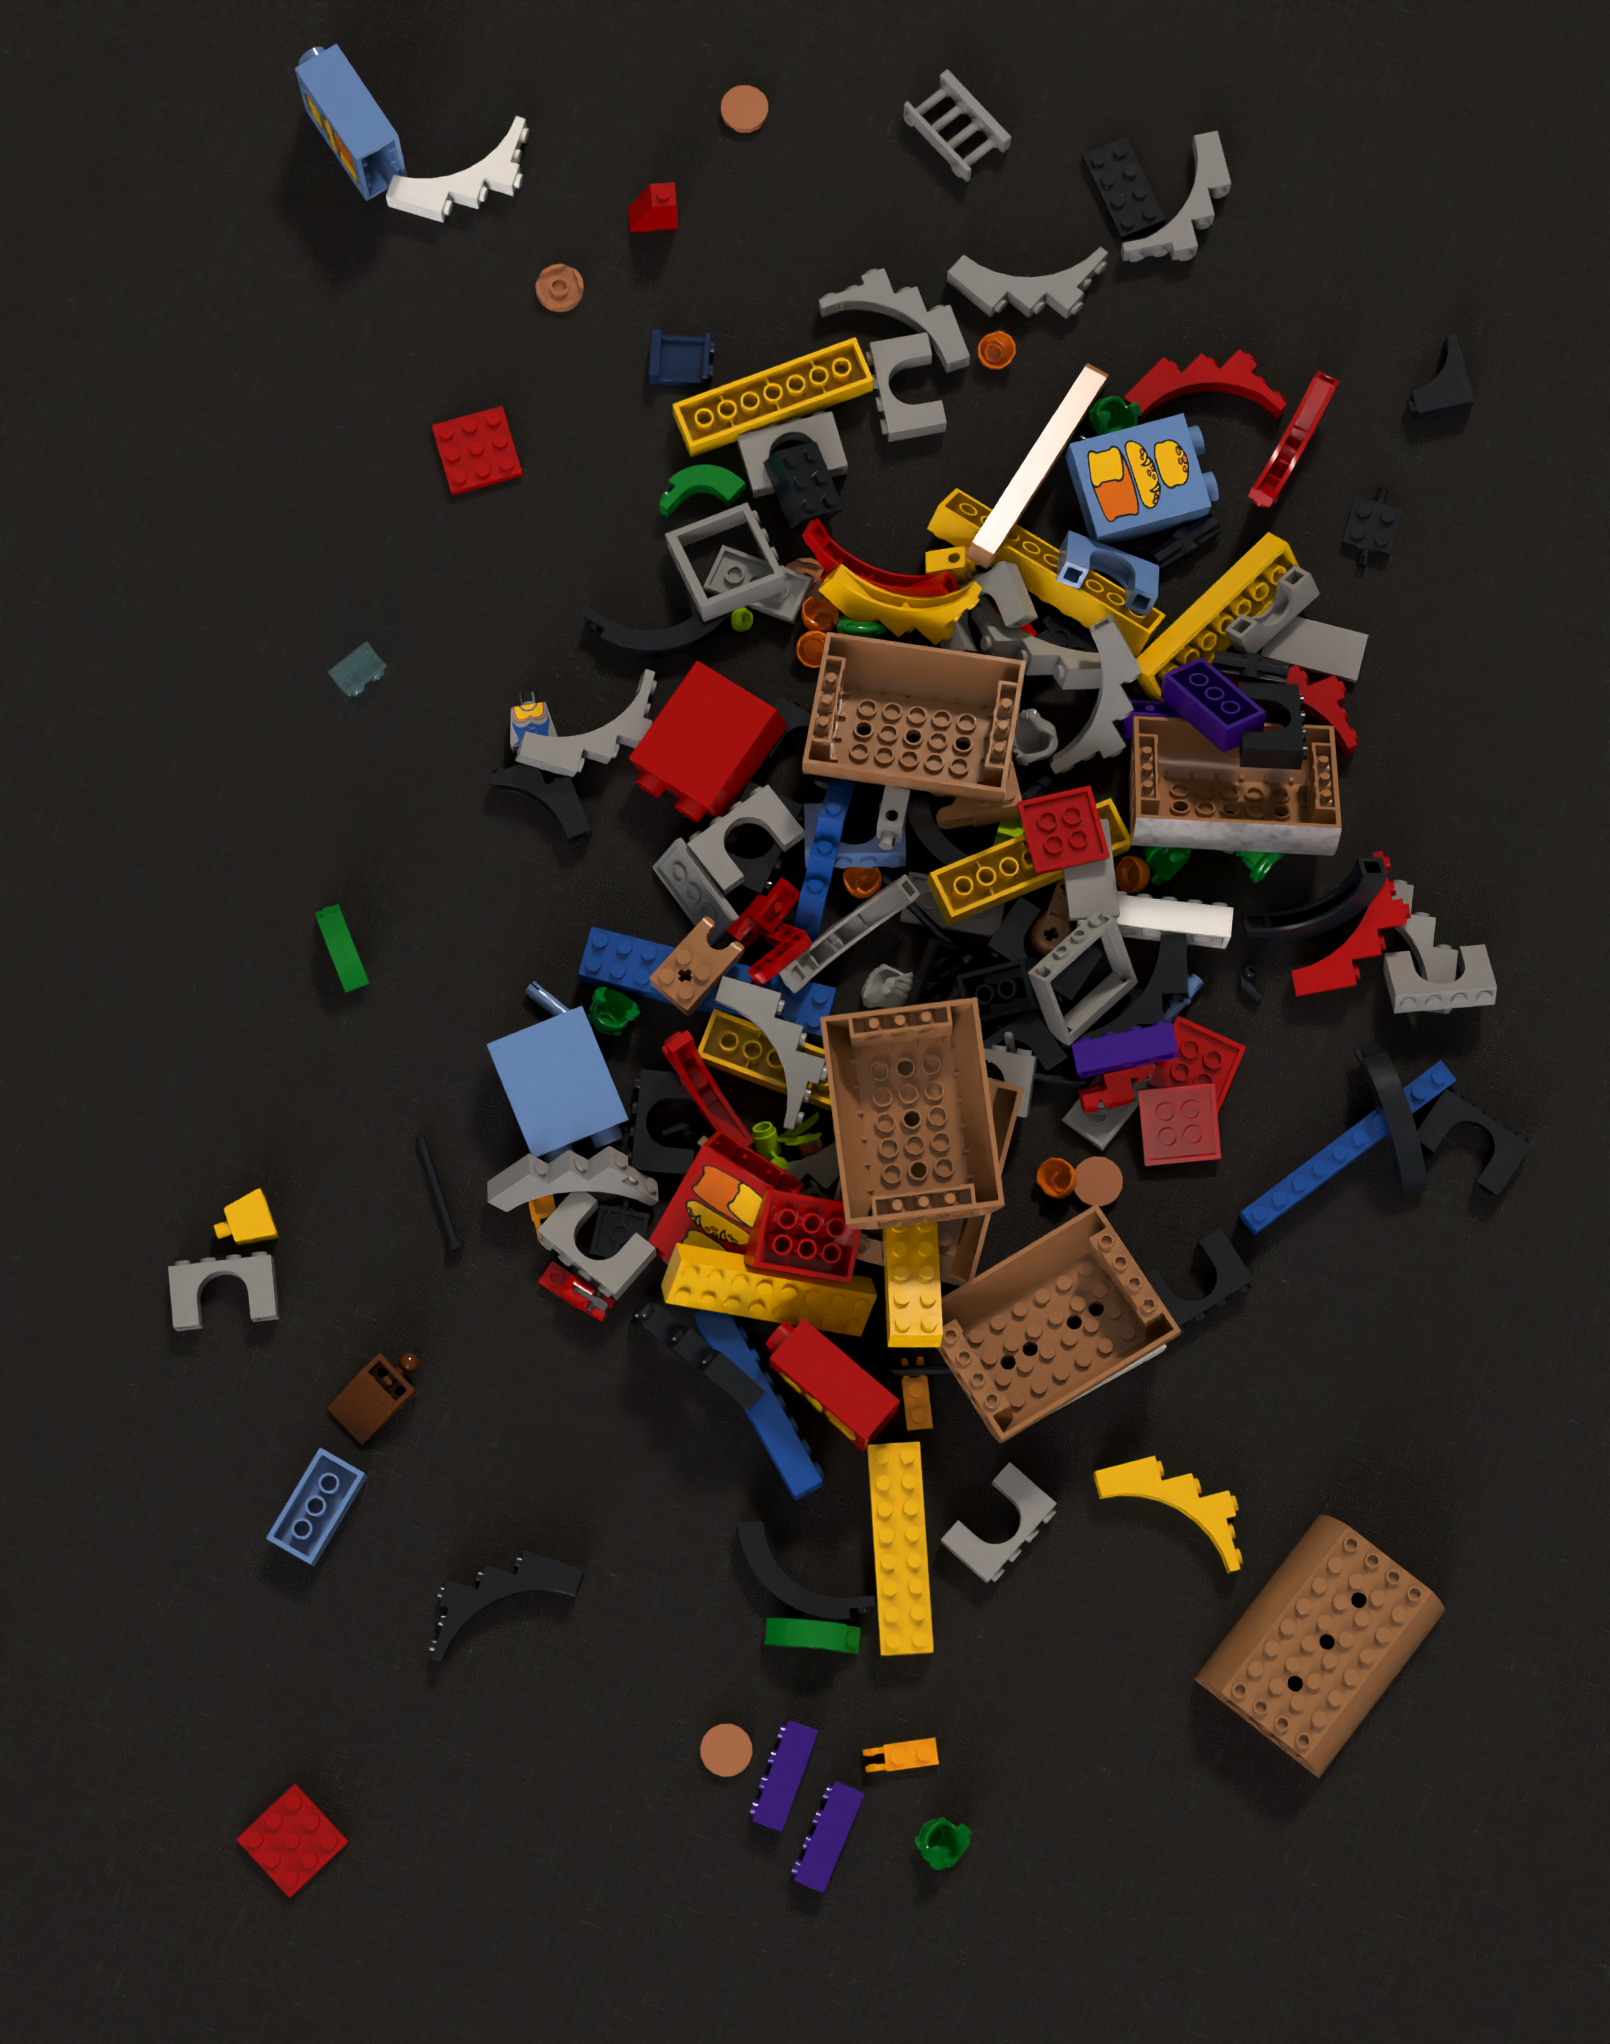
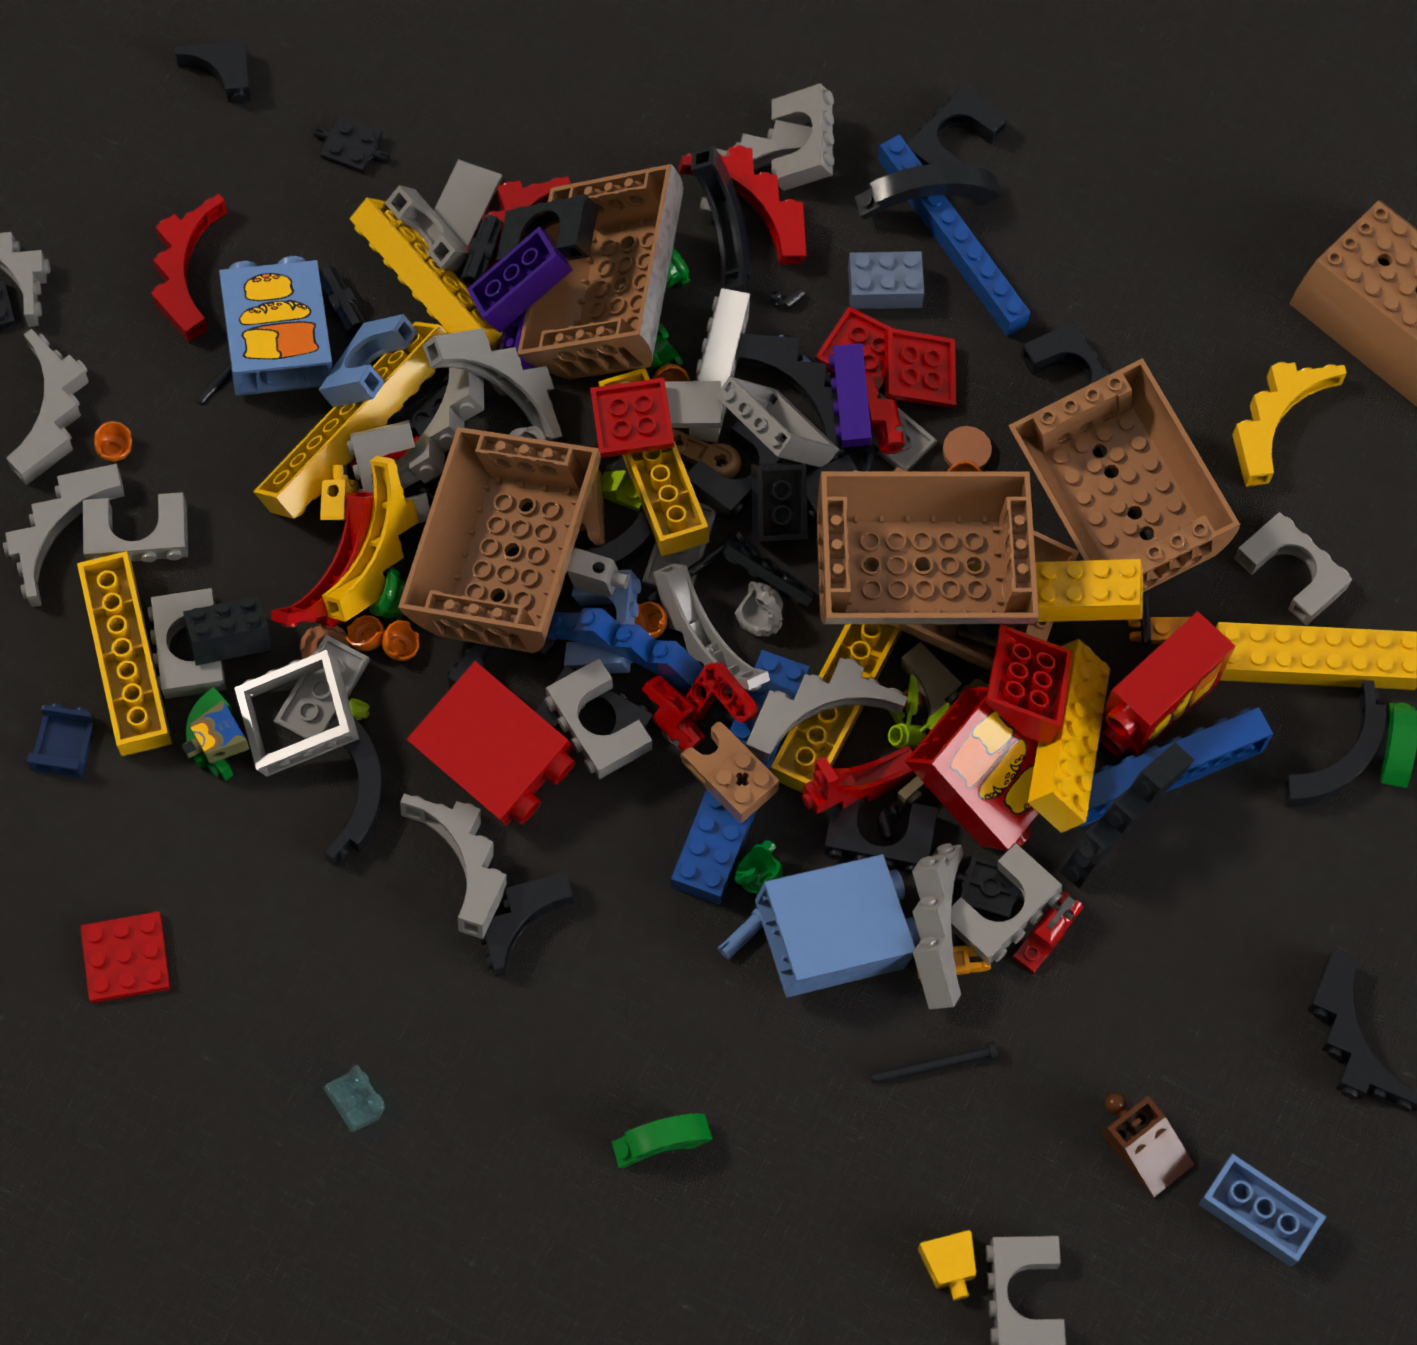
camera: 85 degrees left, 10 degrees down
(531, 718) = (440, 925): torso -> none
(692, 491) = (216, 735): none -> torso
(694, 889) = (641, 777): light grey tile -> none
(1036, 466) = (248, 409): beam -> none
(1112, 415) = (204, 345): green helmet -> none
(1282, 1082) = (885, 280): none -> sand blue brick
(1294, 441) = (239, 181): red arch -> none

